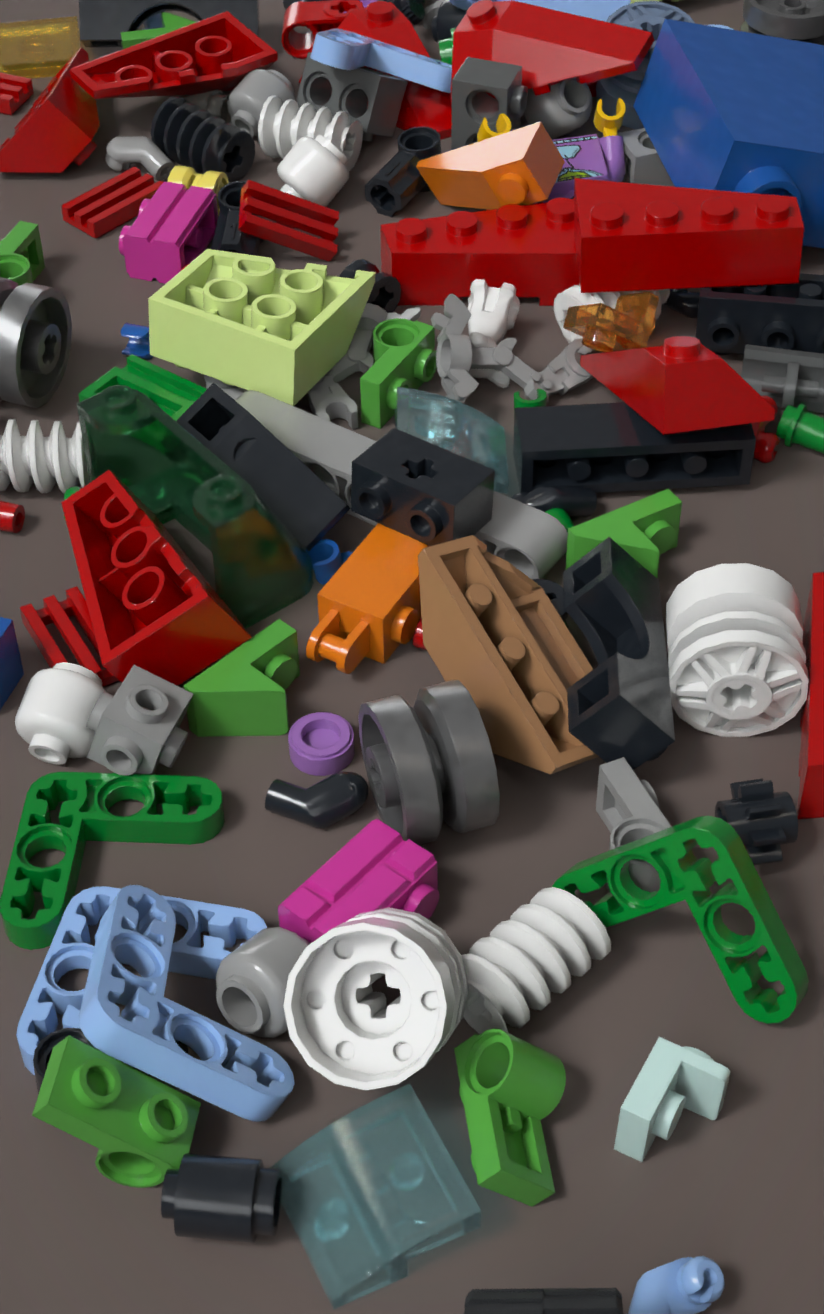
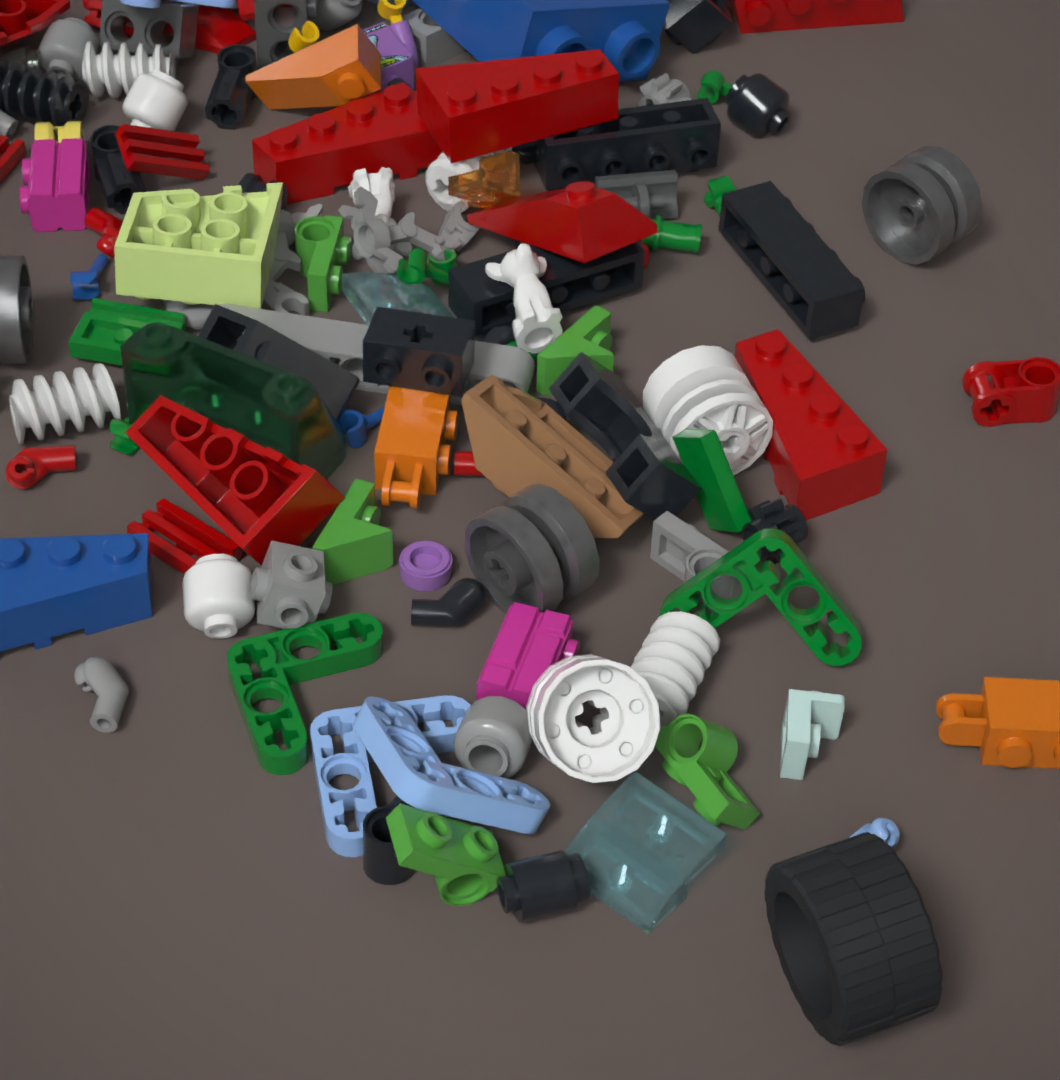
camera: 25 degrees left, 0 degrees up
(485, 396) = (417, 268): none -> green hand
(583, 488) = (536, 319): none -> white animal
(698, 733) = (709, 467): none -> green tile

